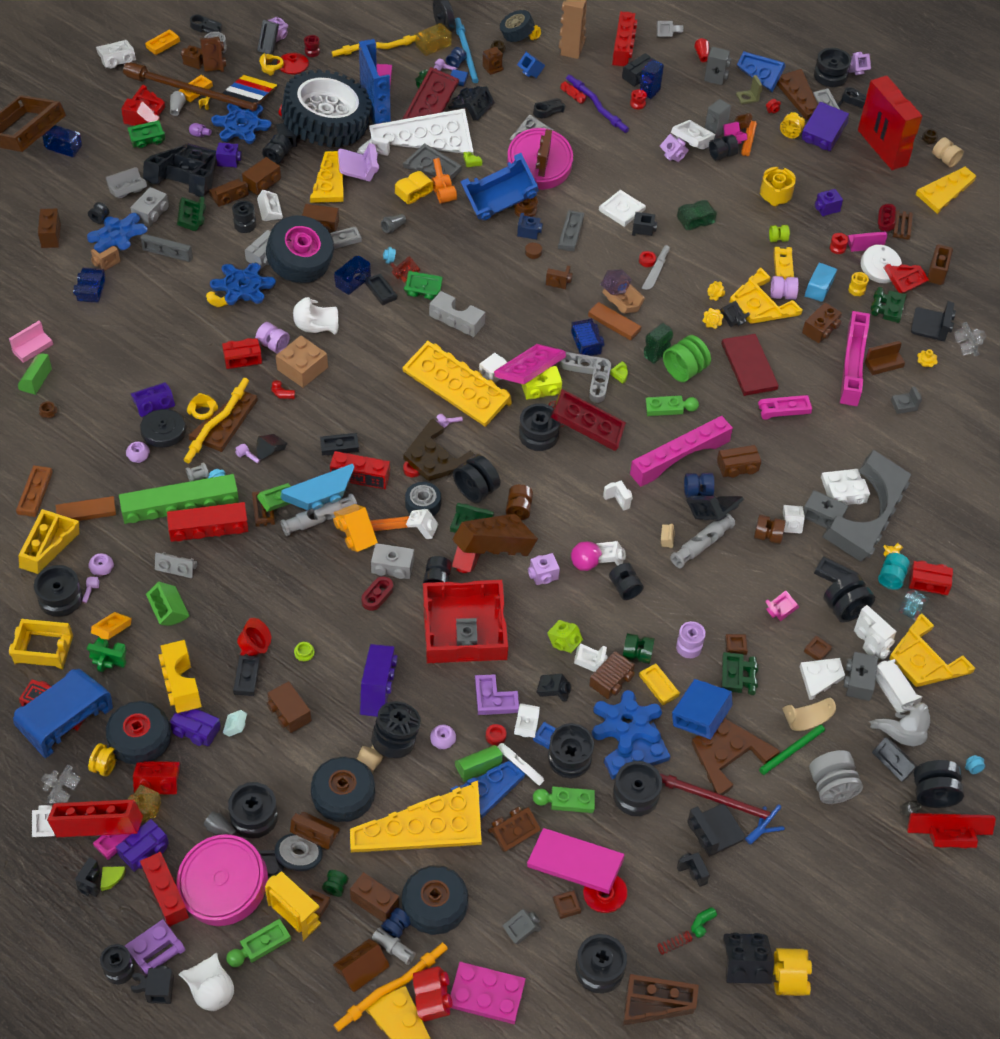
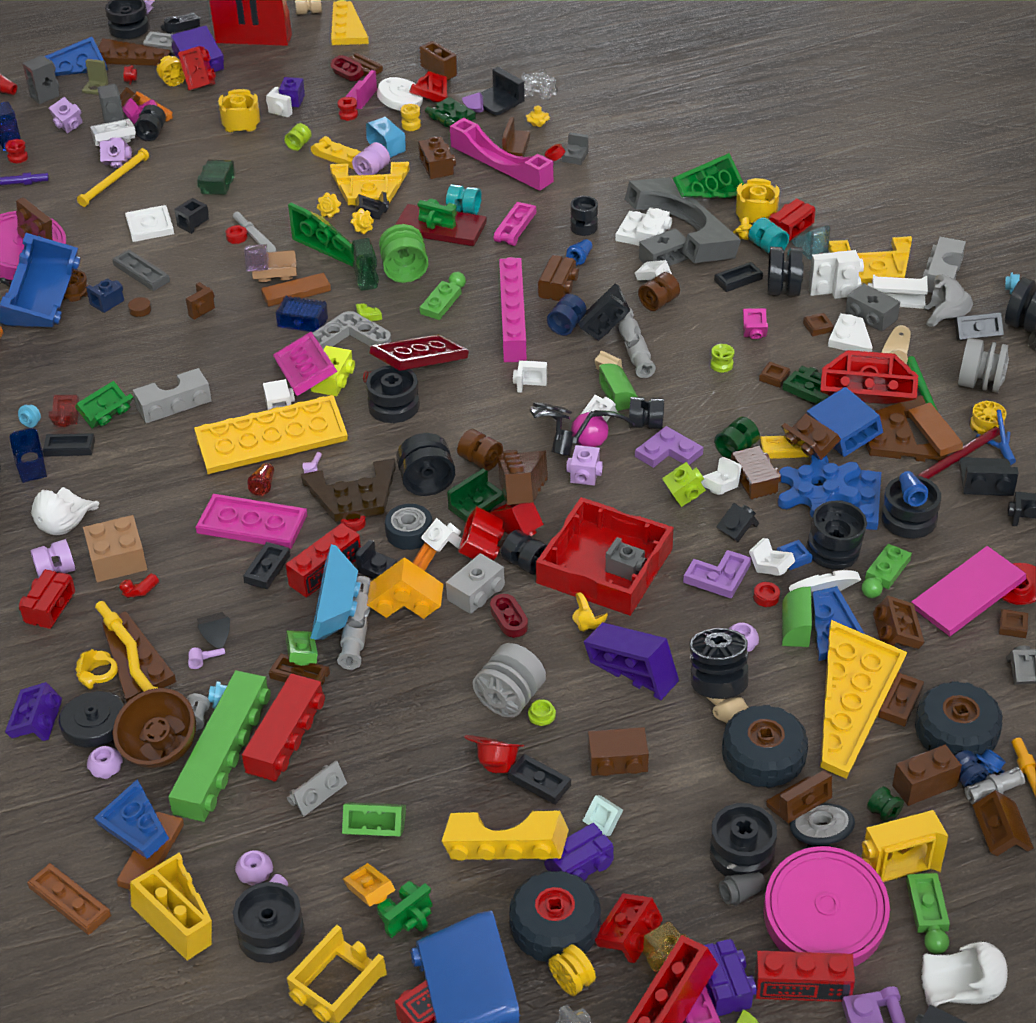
camera: 55 degrees left, 10 degrees down
(97, 488) = (134, 821): none -> blue wing
(162, 460) = (155, 728): none -> reddish brown piece
(309, 618) = (509, 680): none -> light grey wheel
(376, 416) = (251, 520): none -> dark pink tile
(378, 498) = (371, 562): none -> black bracket
(399, 637) = (584, 617): none -> yellow piece
(413, 400) = (261, 480): none -> clear red cone
(413, 936) = (991, 761): none -> blue plate
(435, 542) = (481, 534): none -> red brick
(442, 855) = (901, 699): none -> reddish brown plate
(561, 544) = (563, 439): none -> black plant
(608, 608) = (668, 443): none -> medium lavender plate
(635, 779) = (913, 489): none -> blue cone
(646, 552) = (616, 385): none -> bright green brick
(654, 162) = (83, 199): none -> yellow bar
(664, 692) = (811, 436): none -> reddish brown bracket
(679, 298) = (319, 234): none -> green wedge
(690, 639) = (753, 397): lavender wheel -> none
(692, 100) = (66, 115): none -> lavender brick
(730, 602) = (722, 358): none -> lime wheel
(740, 773) = (935, 429): none -> dark orange tile
(746, 355) = (437, 214): none -> green hips
(759, 702) = (871, 377): none -> red wedge
(782, 460) = (579, 251): none -> blue cone
(783, 363) = (465, 199): none -> teal wheel
(789, 806) = (985, 416): none -> yellow wheel
(803, 137) = (197, 67): none -> red bracket
(808, 201) = (278, 103): none -> white bracket
(822, 443) = (584, 215): none -> black wheel
(890, 390) = (555, 152): none -> red tile
(910, 312) = (474, 102): none -> medium lavender tile
(931, 503) = (711, 180): none -> green wedge
(931, 543) = (756, 199): none -> yellow brick
(971, 702) = (944, 259): none -> light grey arch

